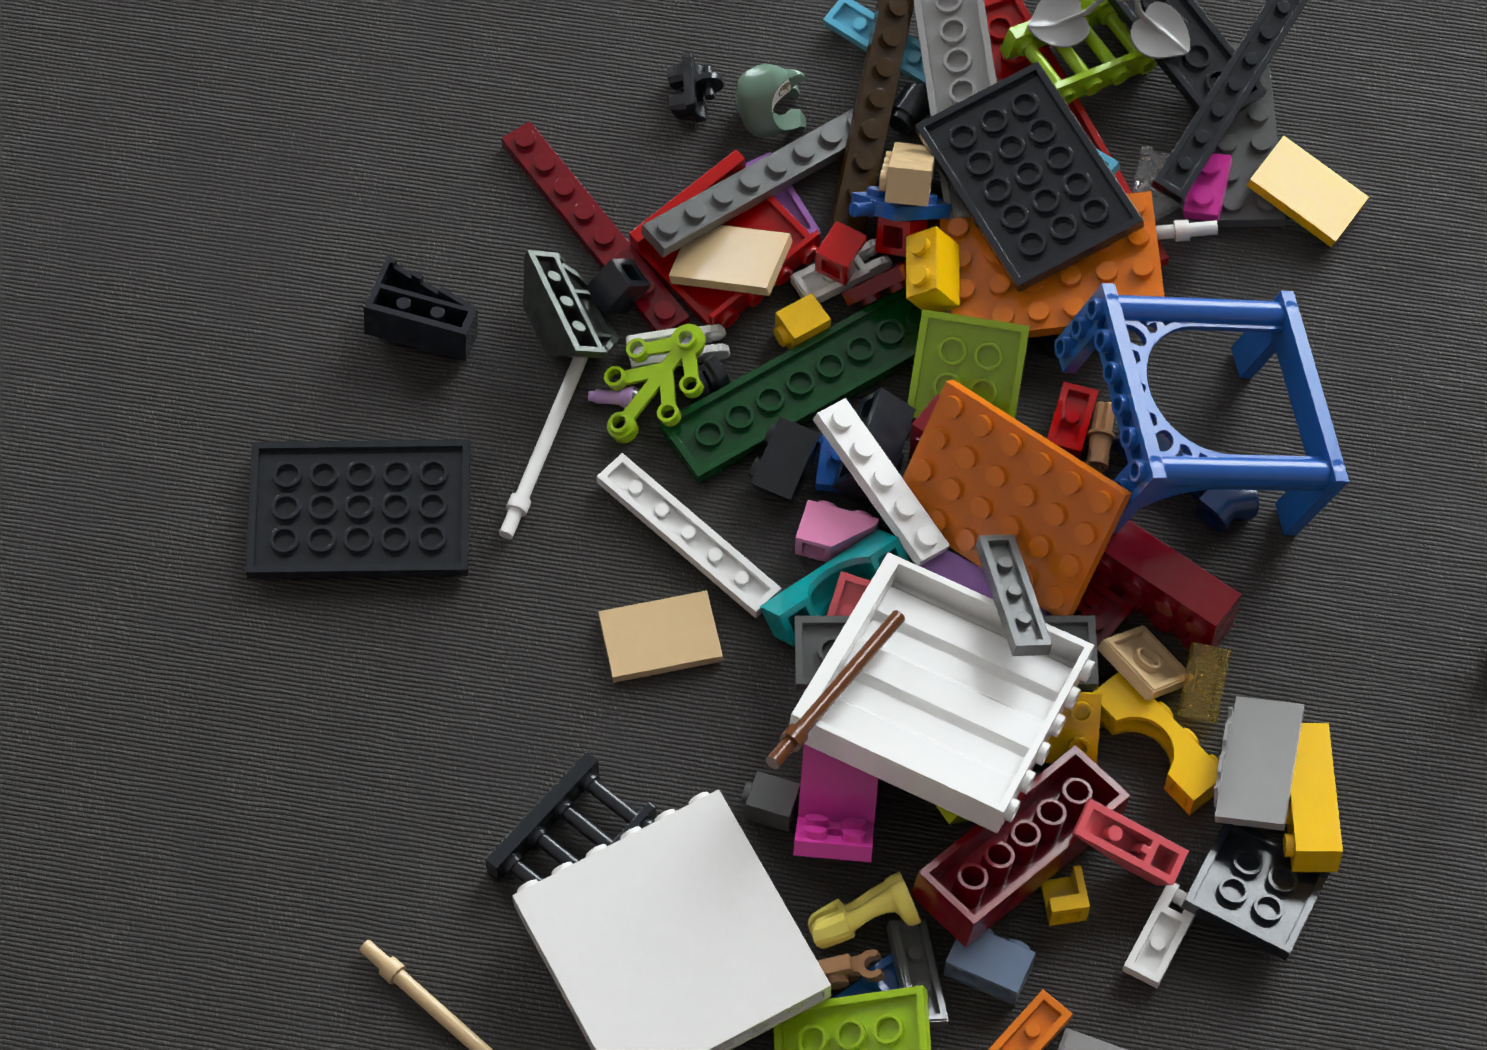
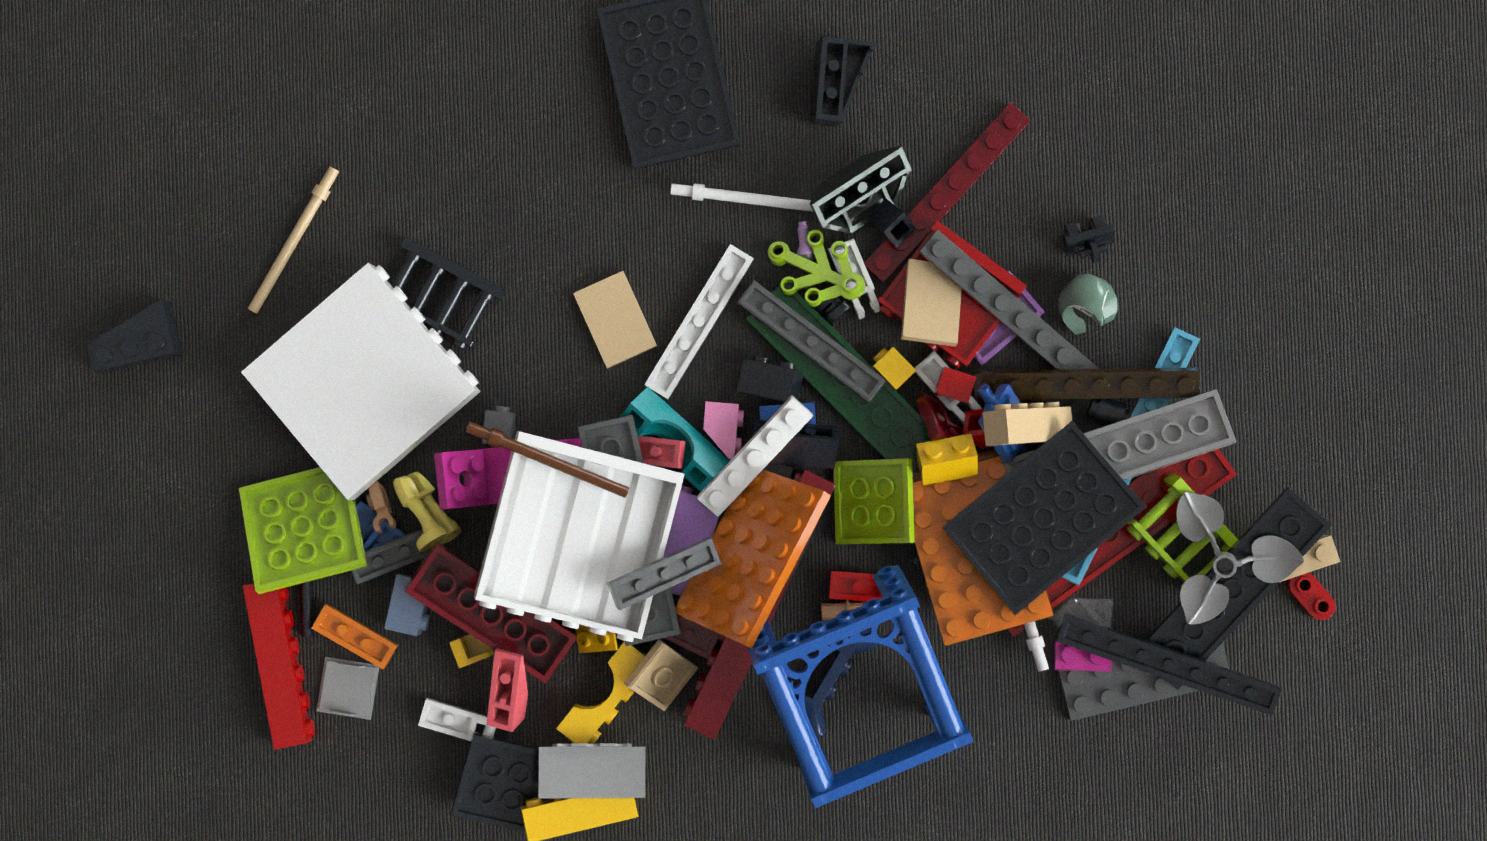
camera: 85 degrees right, 25 degrees up
(745, 405) = (811, 341): none -> dark grey tile
(1204, 682) = (656, 720): clear yellow plate -> none
(1307, 191) = (1097, 734): tile -> none

